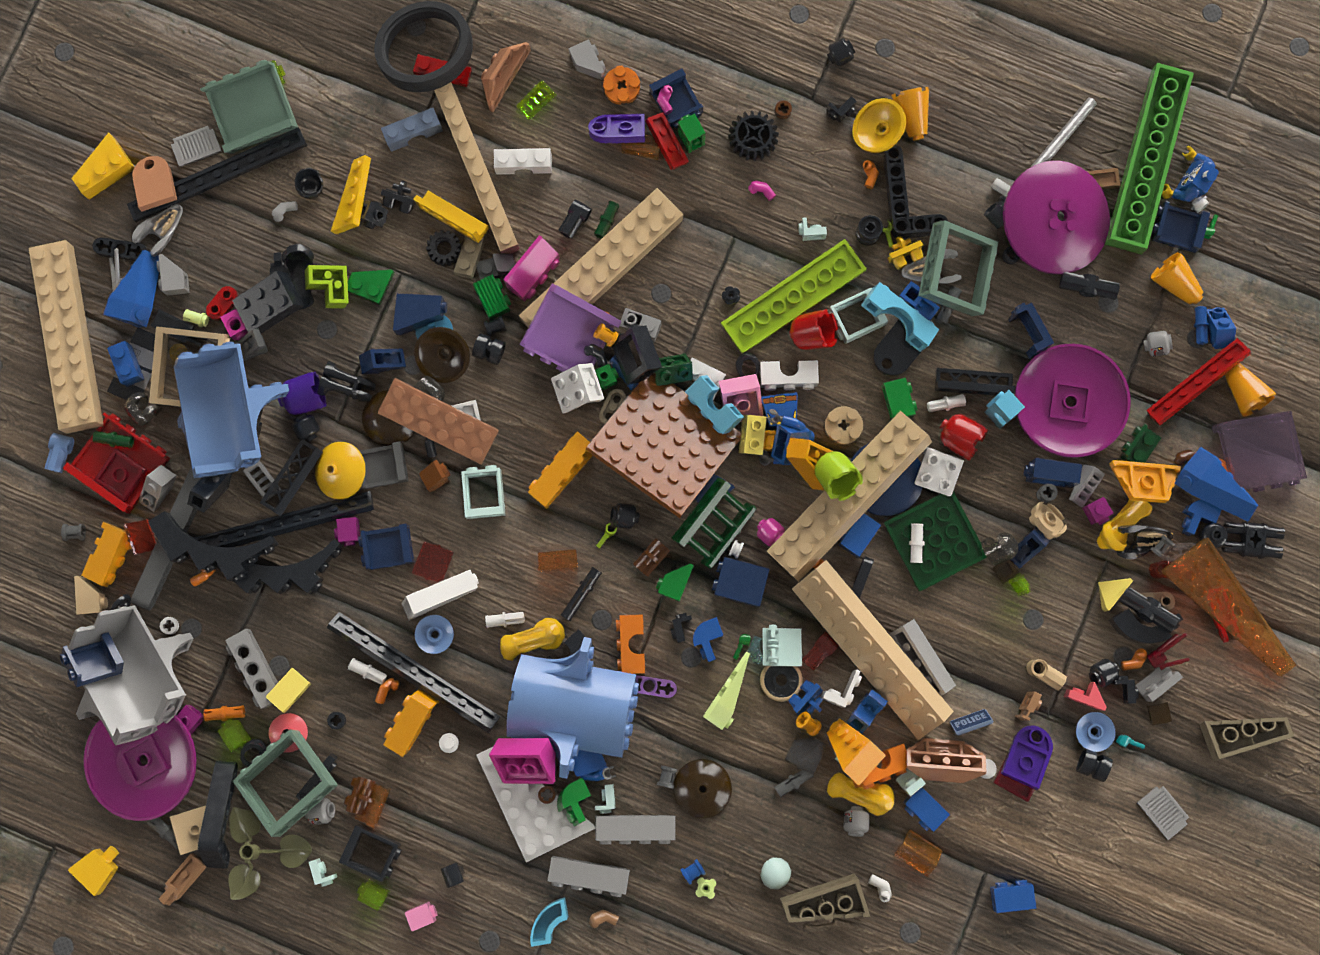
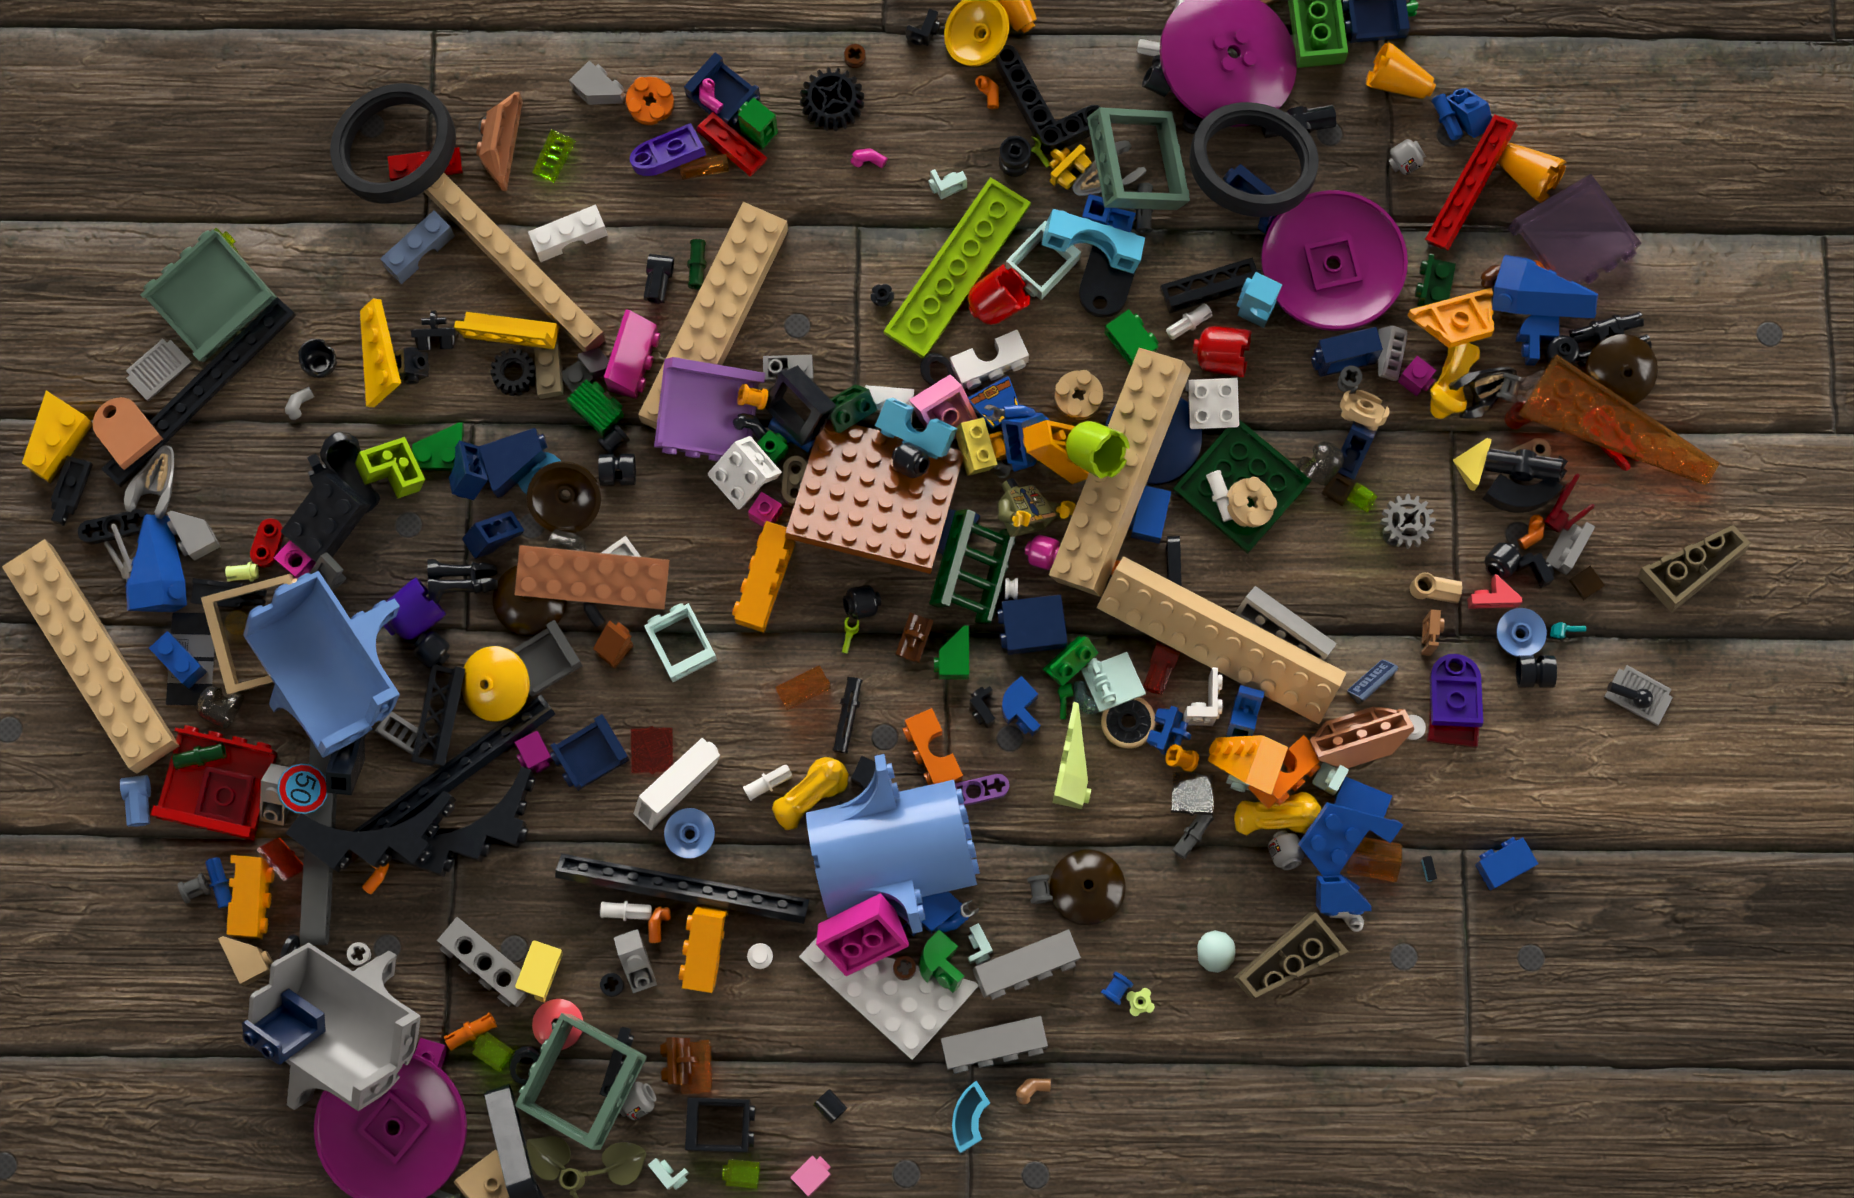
camera: 25 degrees left, 5 degrees down
(92, 534) = (218, 882): none -> blue axle
(99, 209) = (69, 488): none -> black hinge
(172, 493) = (302, 788): none -> piece
(359, 710) = (635, 961): none -> light grey slope
(382, 308) = (468, 471): none -> dark blue arch
(582, 421) = (765, 510): none -> dark pink brick
(700, 427) = (910, 460): none -> black head
(757, 619) = (1071, 660): none -> green bracket
(771, 496) = (1027, 510): none -> torso
(880, 872) = (1337, 895): none -> blue slope
(895, 829) = (1337, 835): none -> blue wing
(943, 564) = (1262, 497): none -> tan plate
(955, 874) = (1428, 867): none -> black piece
(1049, 622) = (1414, 528): none -> light grey gear
(1069, 277) = (1240, 201): none -> black tyre
(1164, 815) = (1642, 698): none -> black bar
(1252, 555) = (1613, 356): none -> dark brown dish

